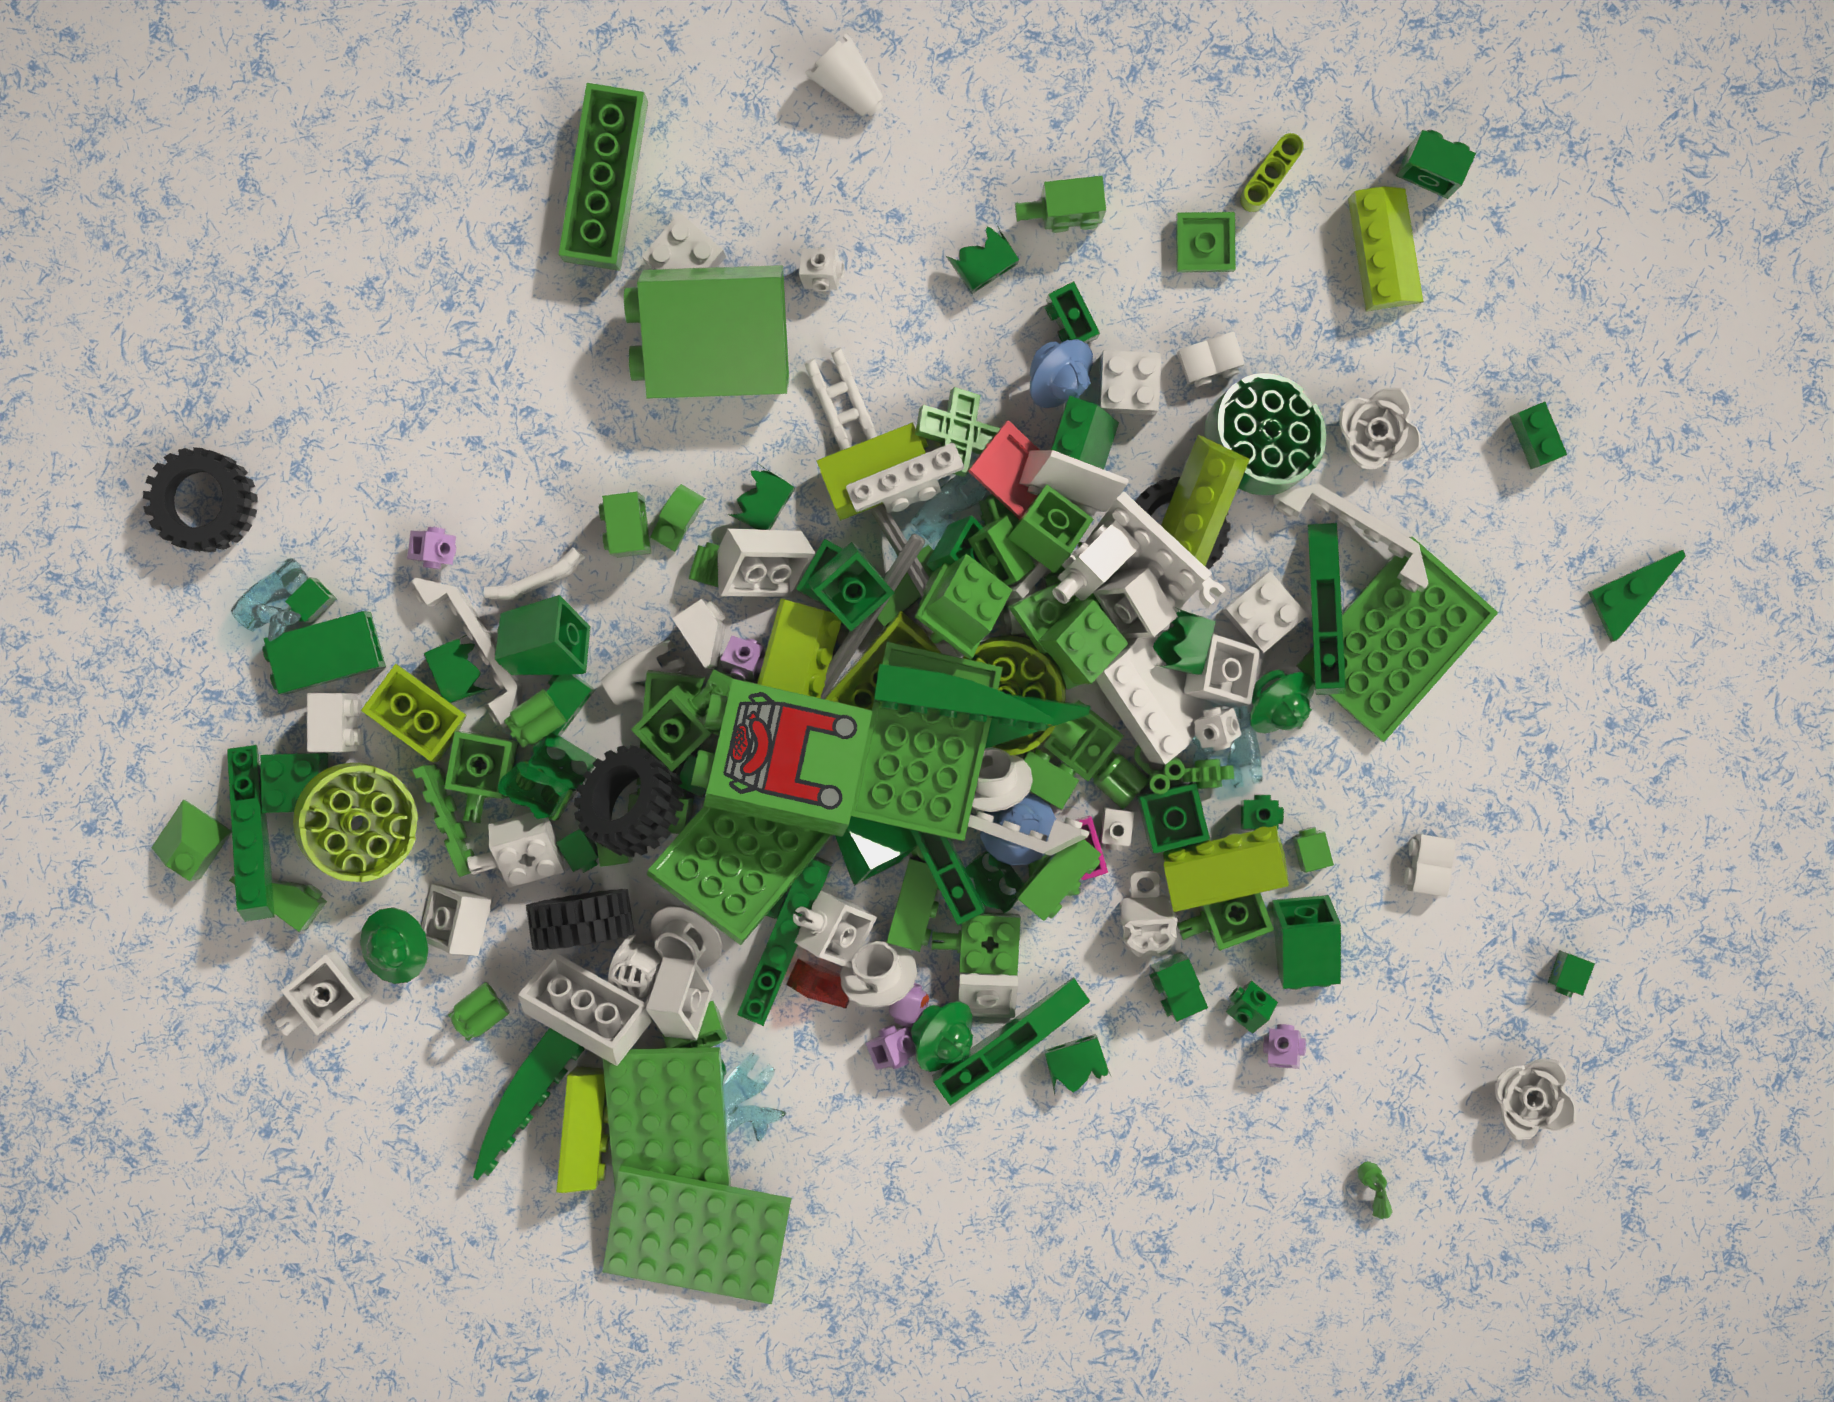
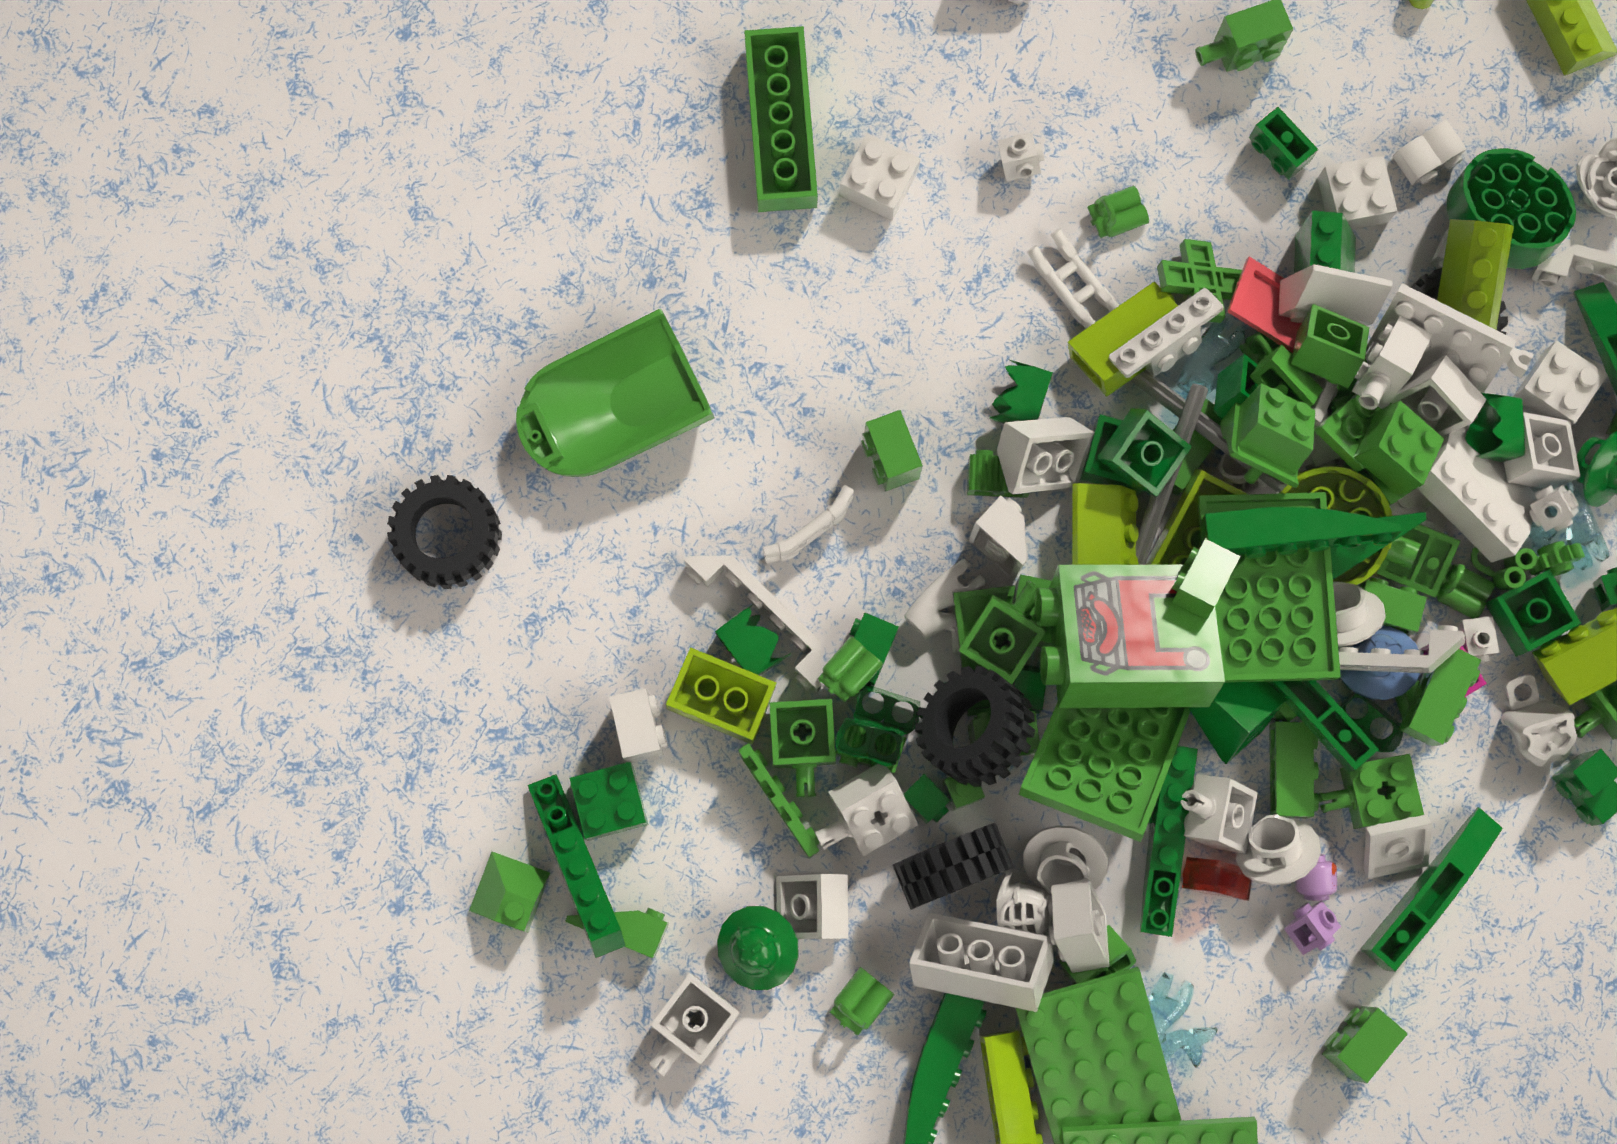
camera: 15 degrees left, 10 degrees down
(251, 607) = (547, 598): clear light blue piece -> none
(311, 600) = (581, 609): green brick -> none
(324, 653) = (607, 659): green brick -> none
(325, 817) = (659, 829): lime brick -> none
(380, 414) = (611, 400): none -> bright green windscreen
(432, 547) = (696, 522): lavender brick -> none
(543, 639) = (835, 587): green slope -> none
(677, 517) = (939, 434): bright green brick -> none
(709, 331) = (932, 237): bright green brick -> none
(743, 659) = (1045, 556): lavender brick -> none
(860, 725) = (1205, 580): none -> brick
(900, 345) = (1118, 212): none -> bright green piece
(906, 1159) = (1363, 1043): none -> bright green brick
(942, 1035) = (1365, 899): green helmet -> none
(983, 265) = (1177, 117): green piece -> none
(1060, 372) = (1289, 198): medium blue helmet -> none
(1074, 1061) = (1508, 895): green piece -> none
(1205, 242) = (1390, 45): bright green plate -> none

